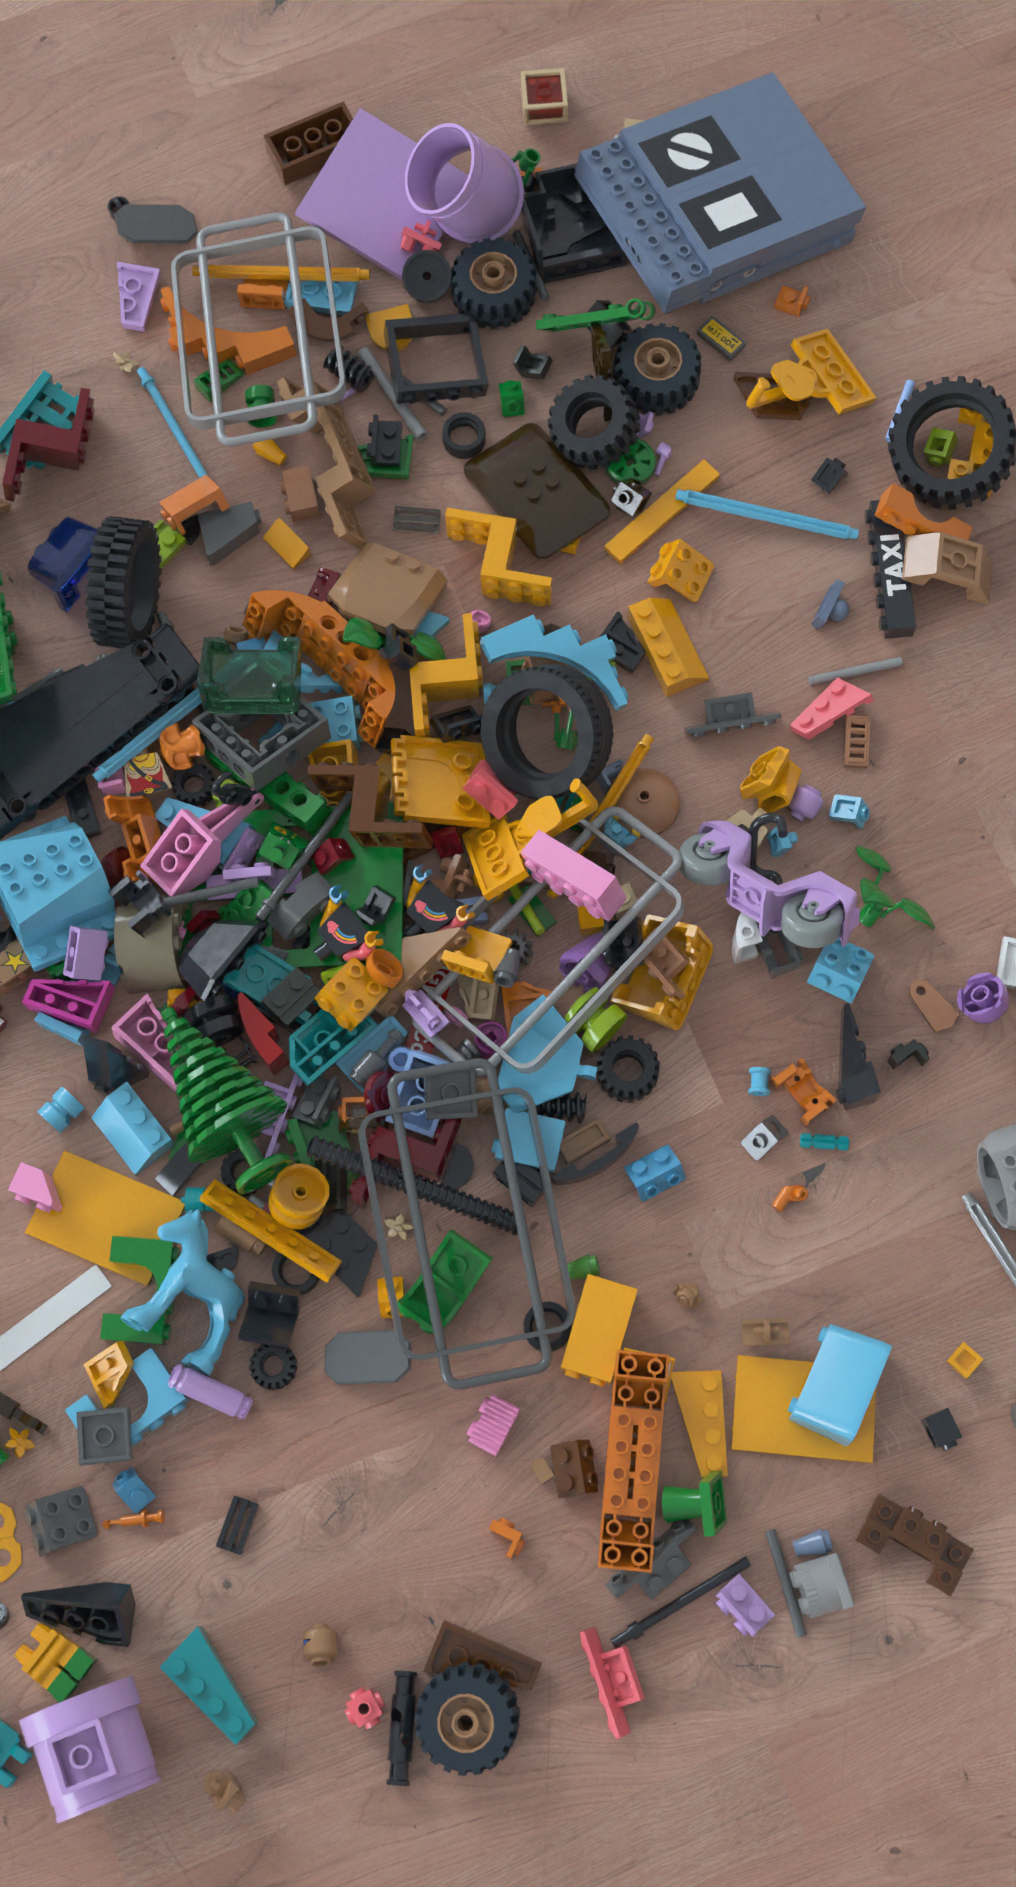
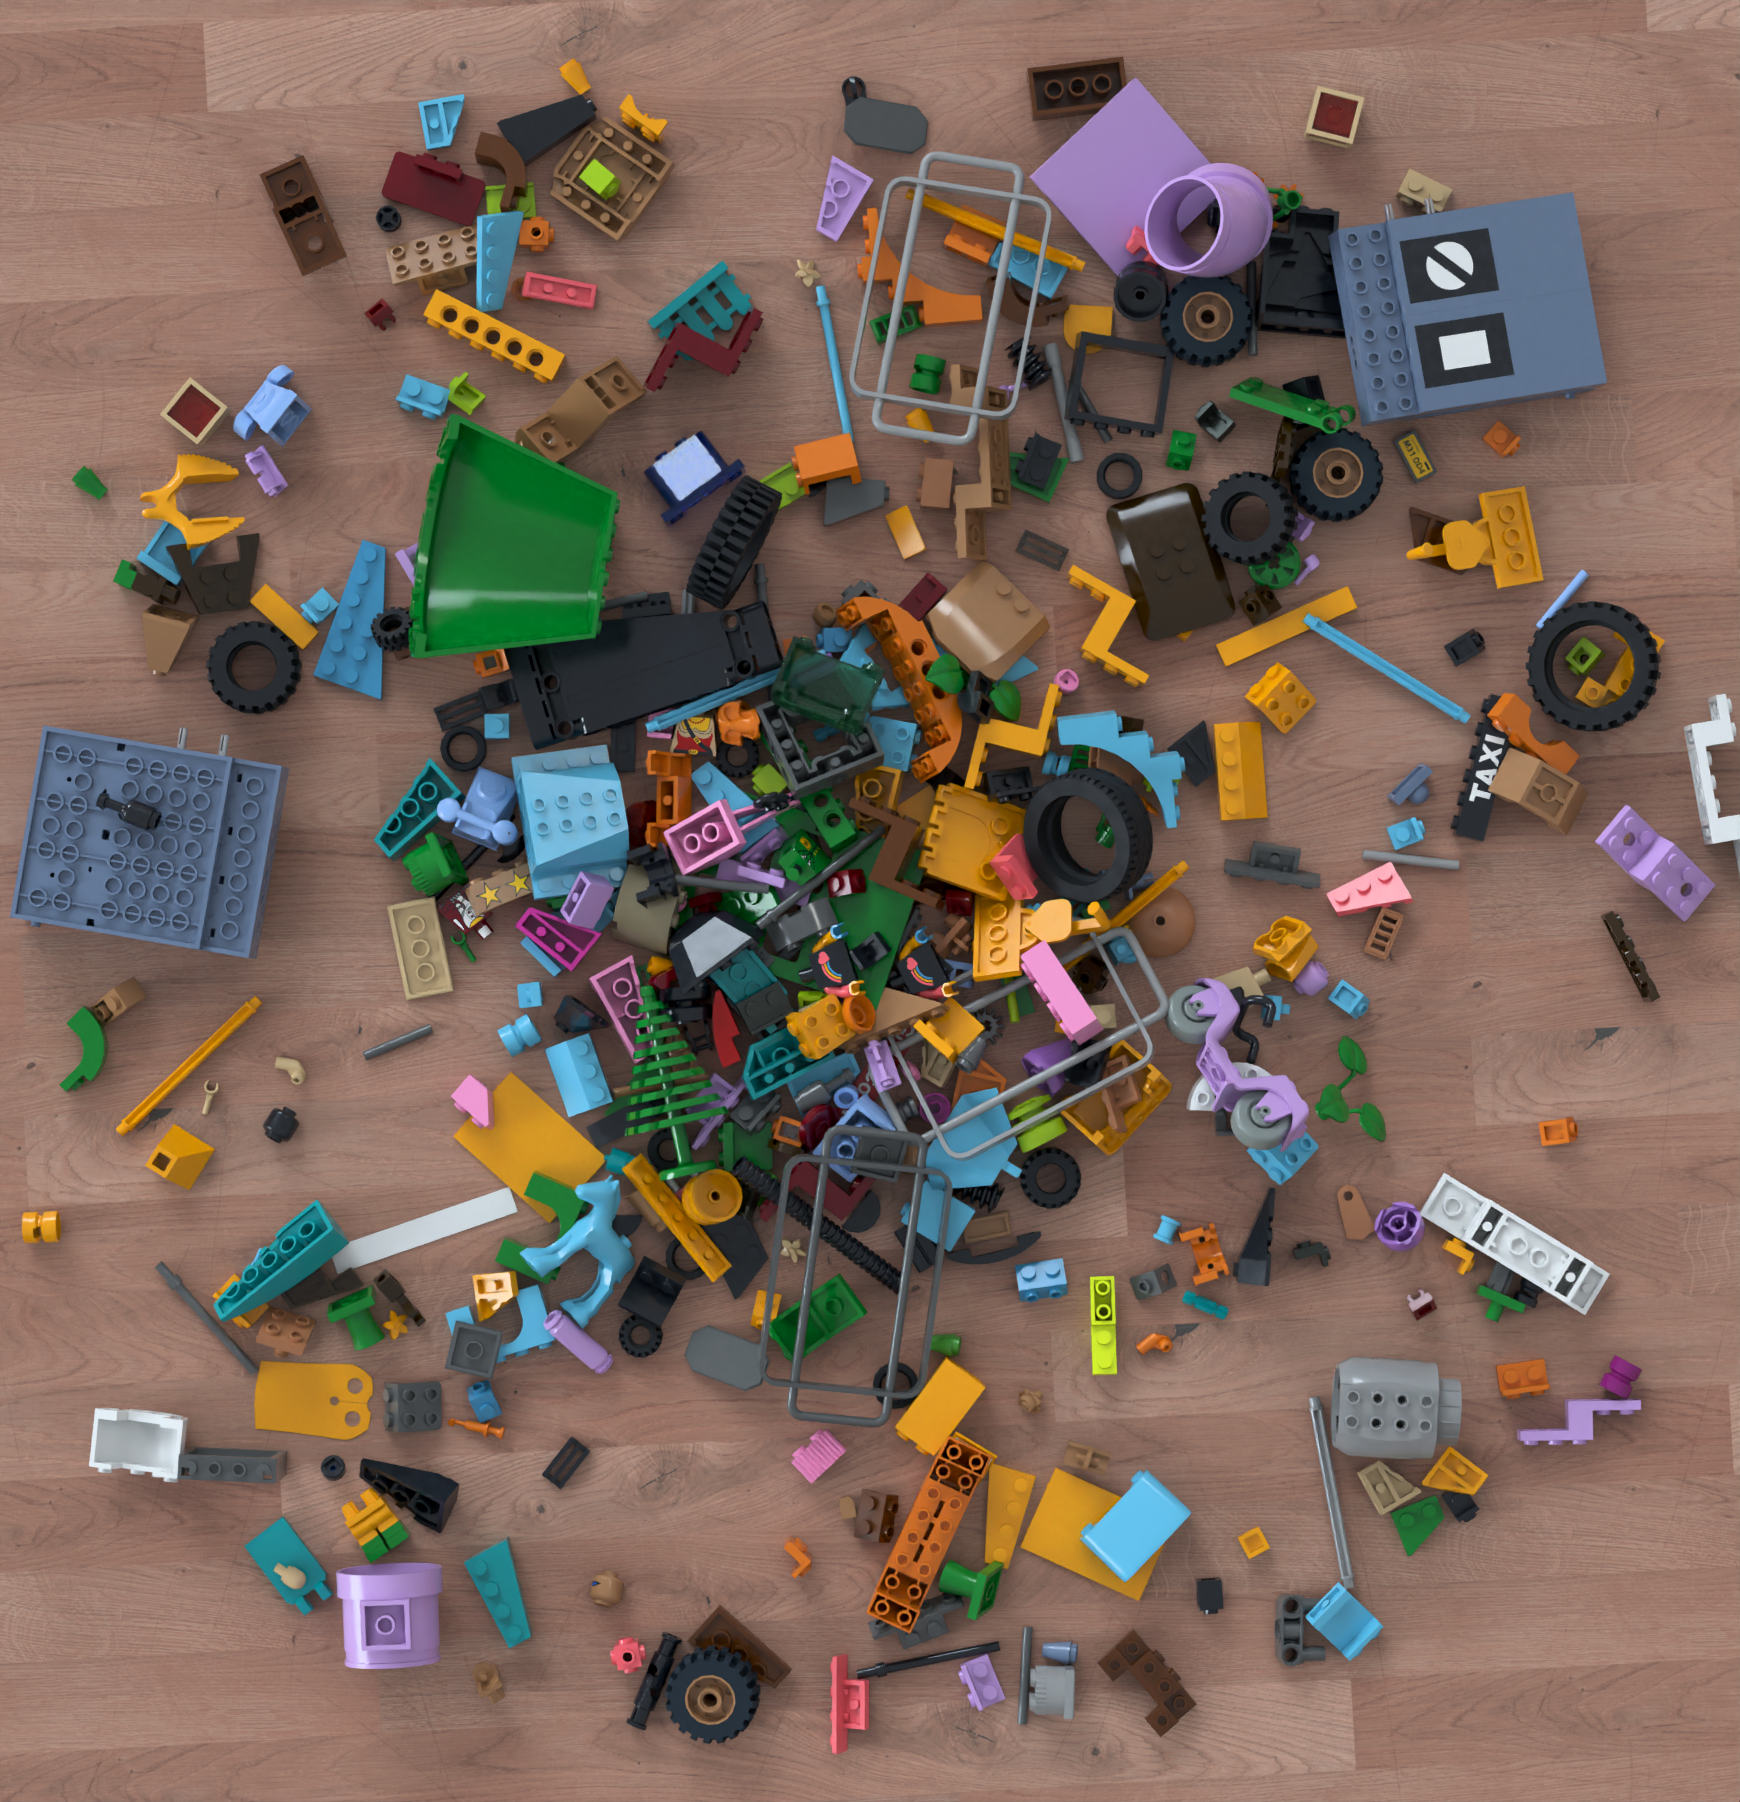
camera: 15 degrees right, 15 degrees up
(61, 1068) = (530, 995): none -> medium azure bracket
(732, 1195) = (1103, 1325): none -> neon yellow slope
(842, 648) = (1406, 833): none -> medium azure bracket

